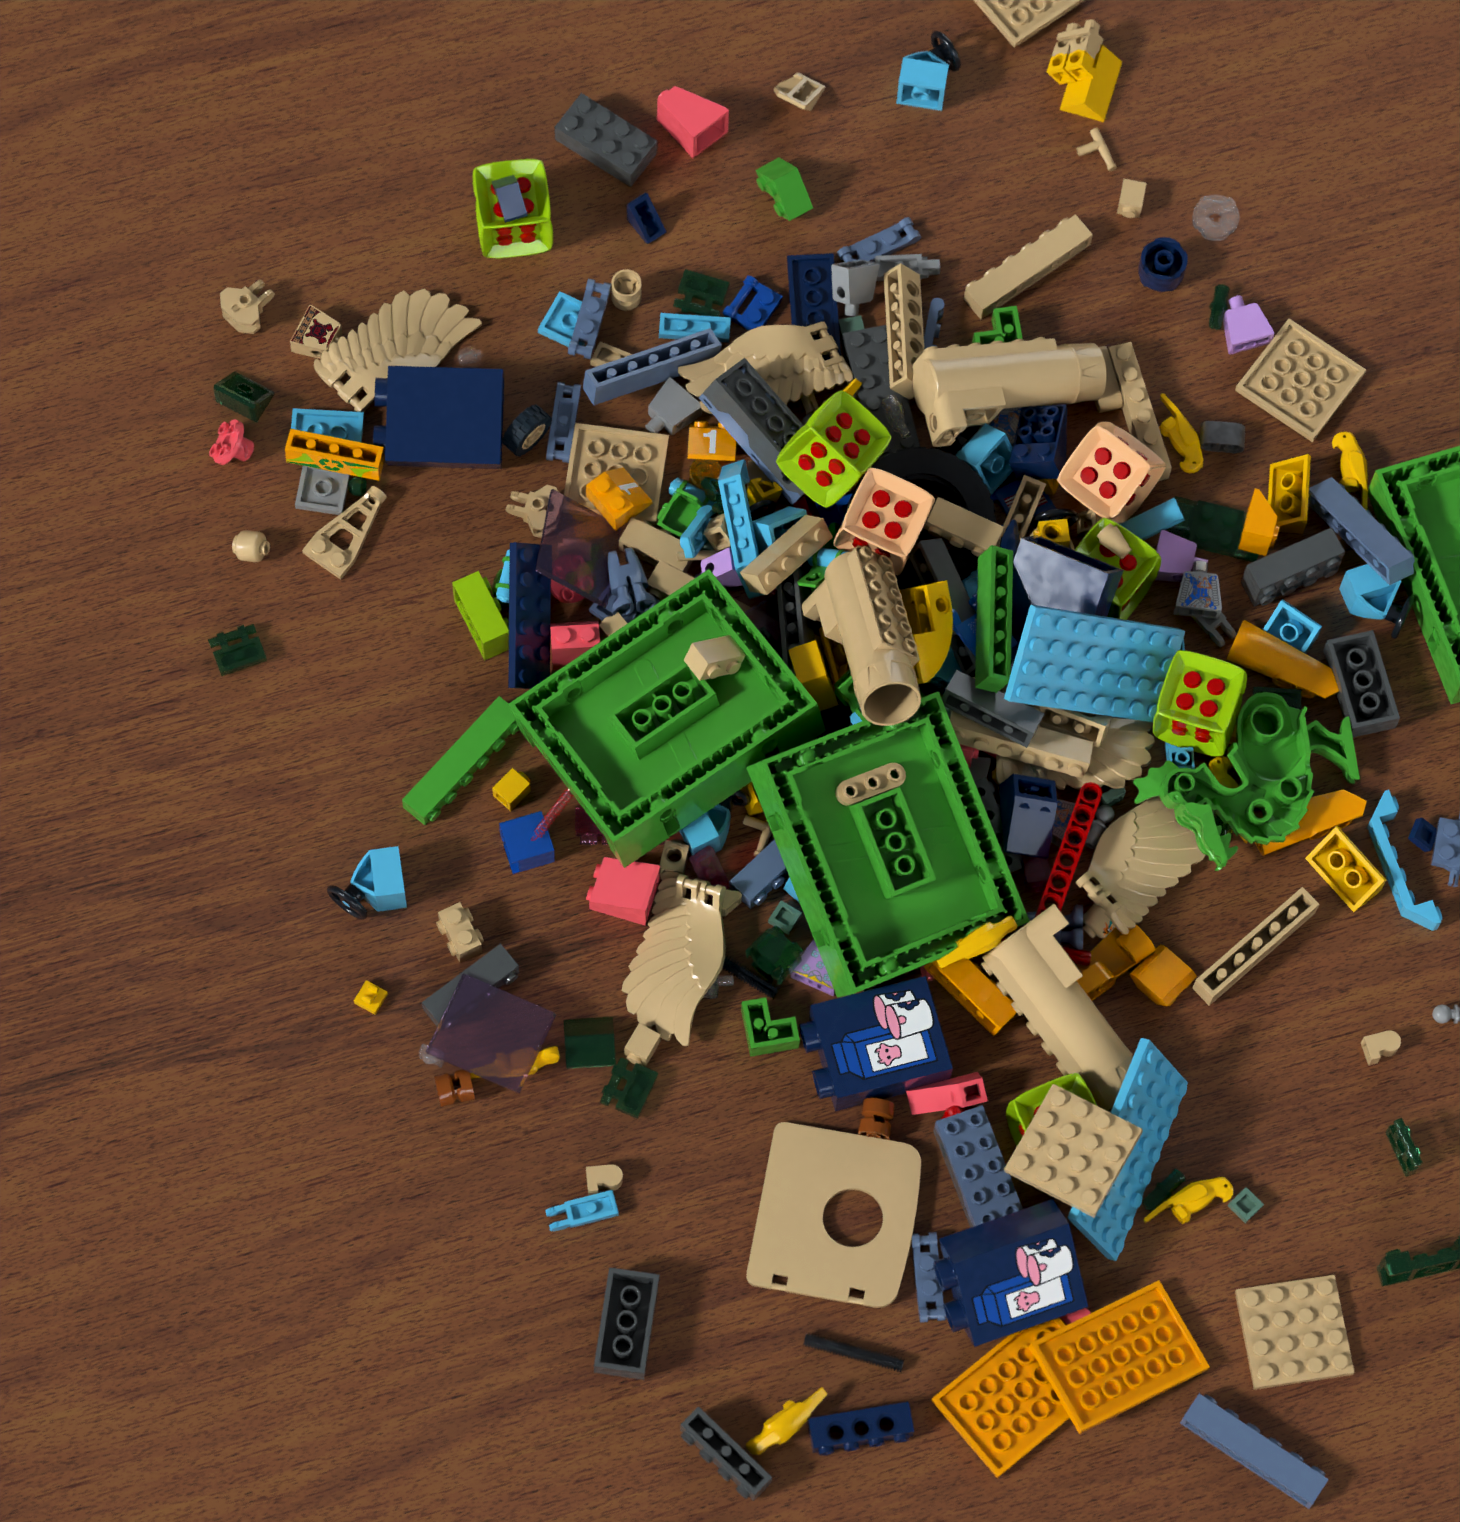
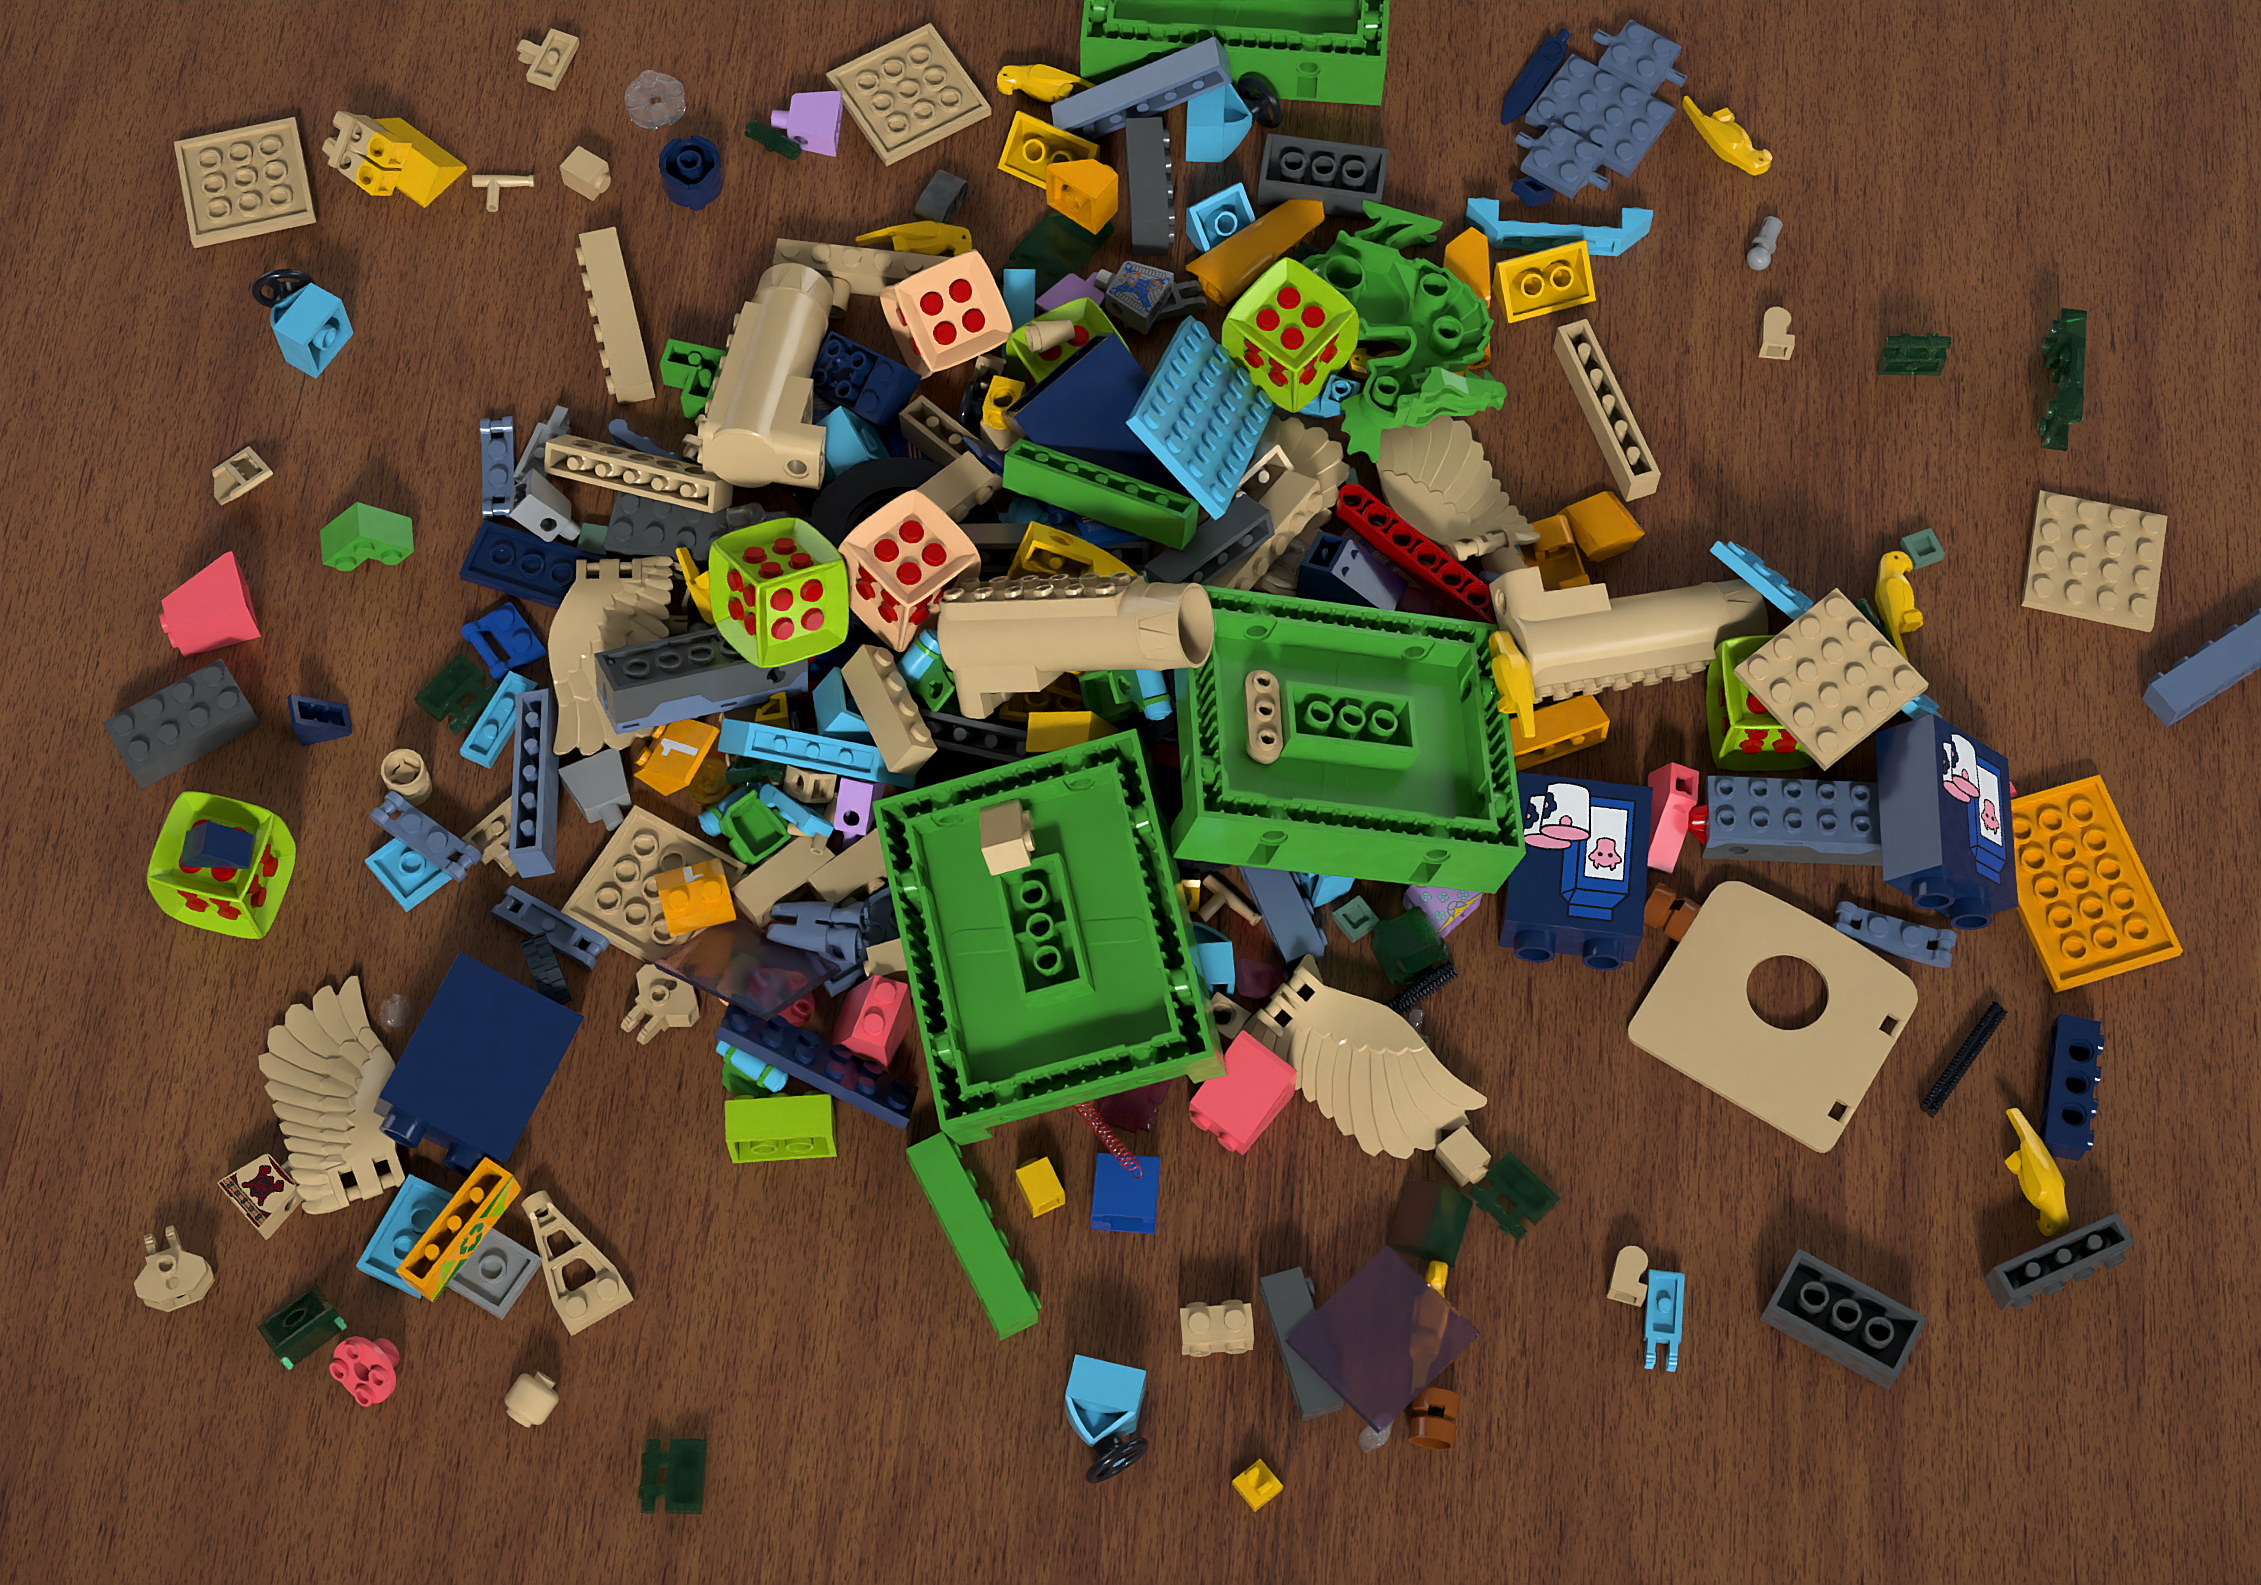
camera: 65 degrees left, 5 degrees down
(357, 486) = (511, 1224): clear green hinge -> none
(767, 1035) = (1504, 1001): bright green brick -> none
(1119, 1356) = (2075, 755): light orange plate -> none
(1214, 134) = (549, 60): none -> tan plate

